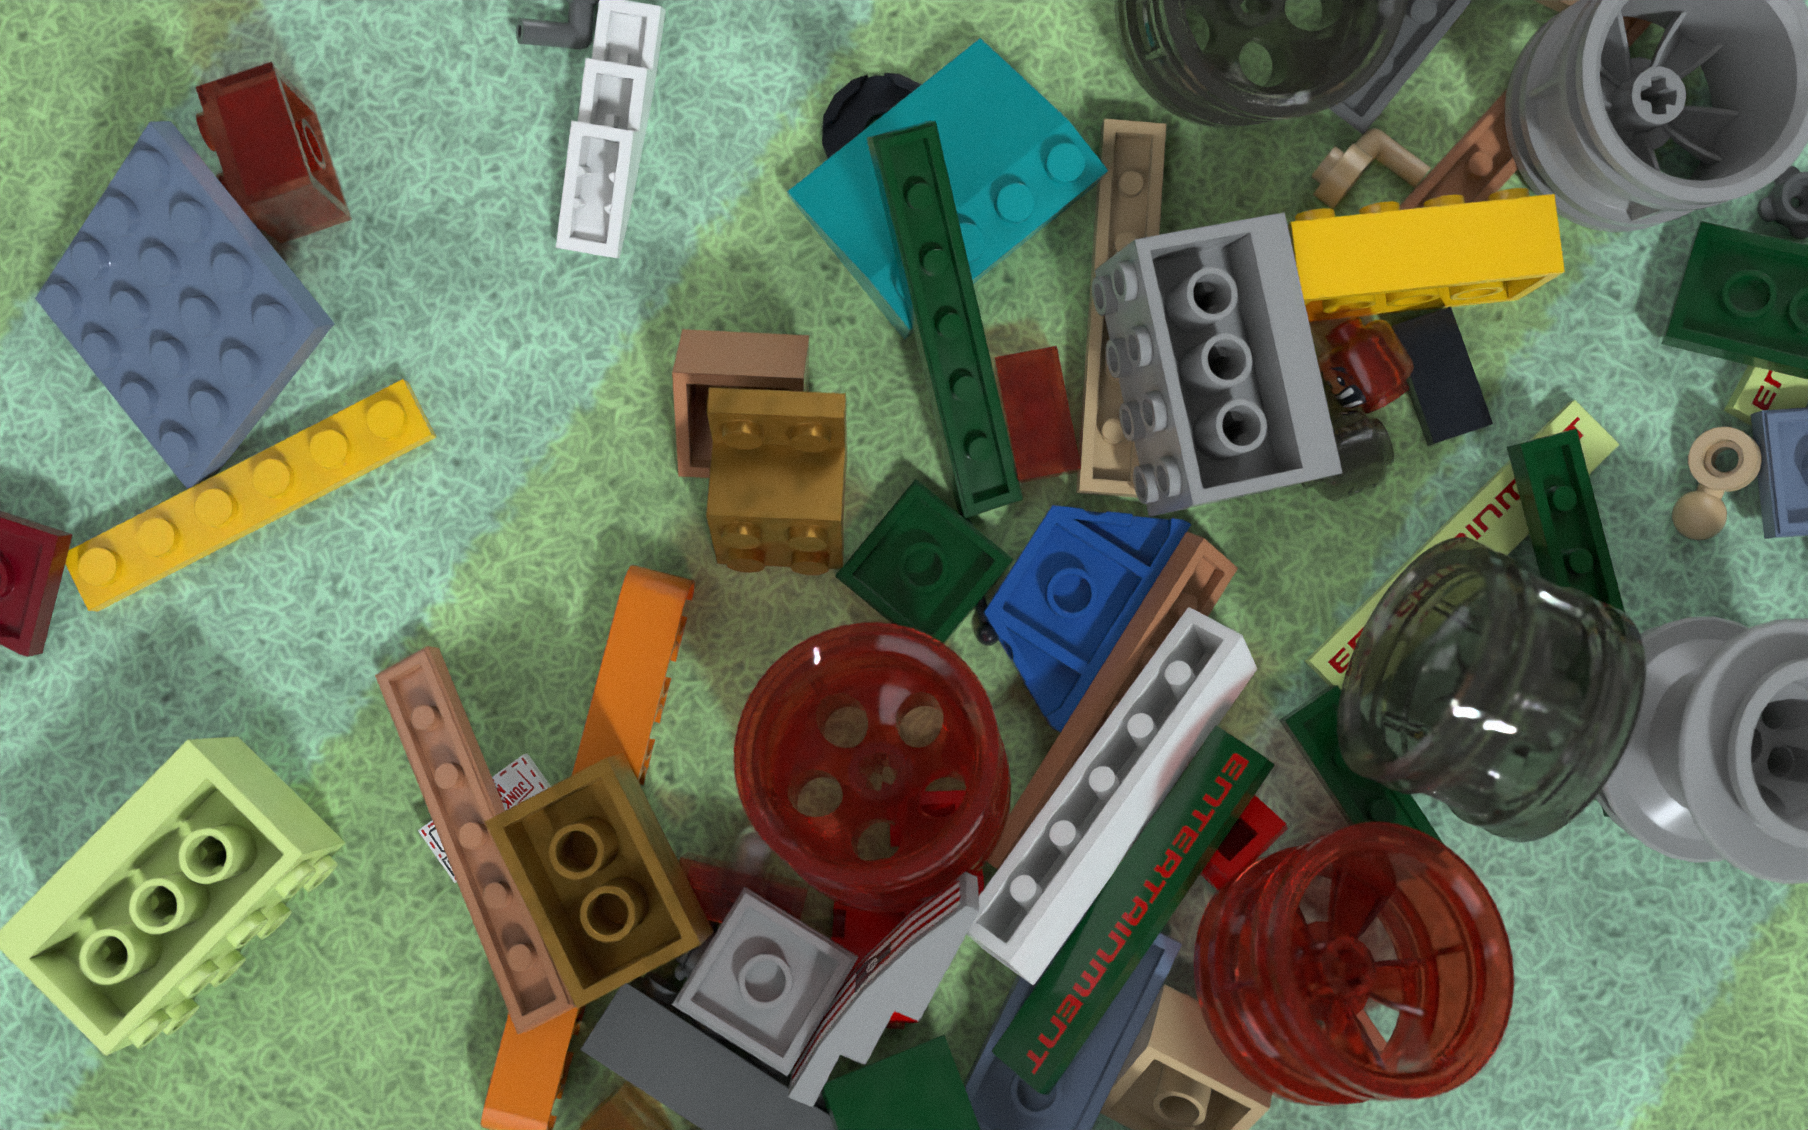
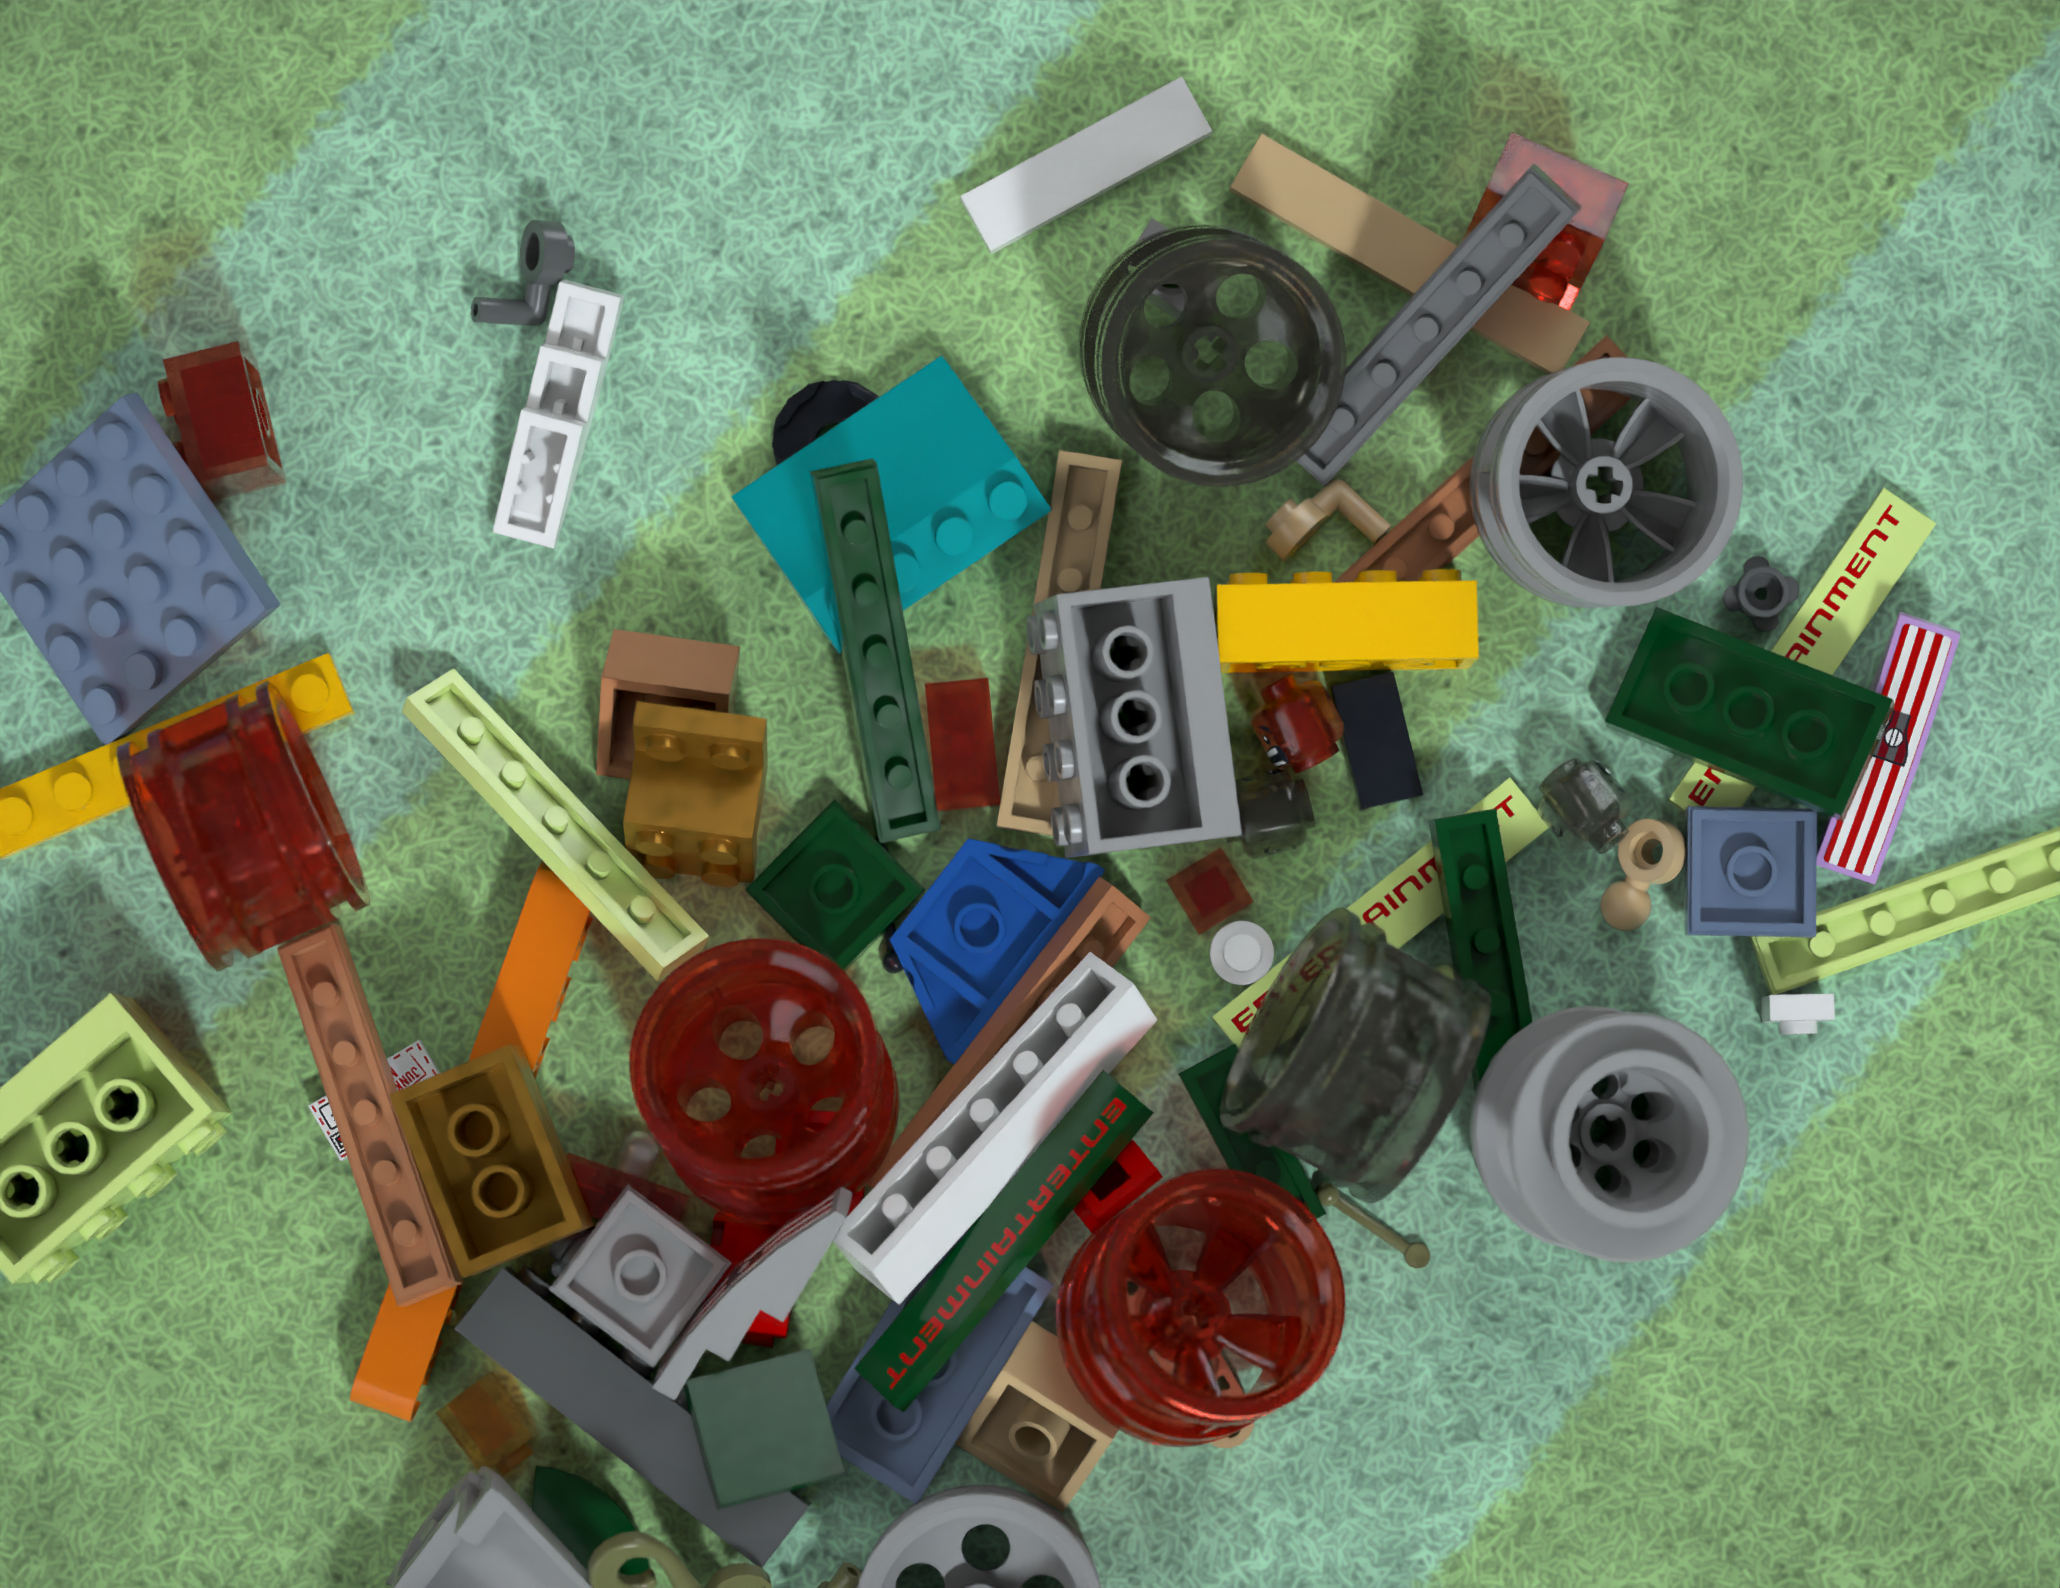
camera: 10 degrees right, 0 degrees up
(308, 556) = (242, 826): none -> clear red wheel
(642, 528) = (555, 824): none -> yellowish green plate
(1292, 537) = (1209, 891): none -> clear red plate
(1330, 595) = (1241, 952): none -> white plate
(1530, 877) = (1415, 1254): none -> olive hinge
(1656, 420) = (1585, 806): none -> clear smoke head

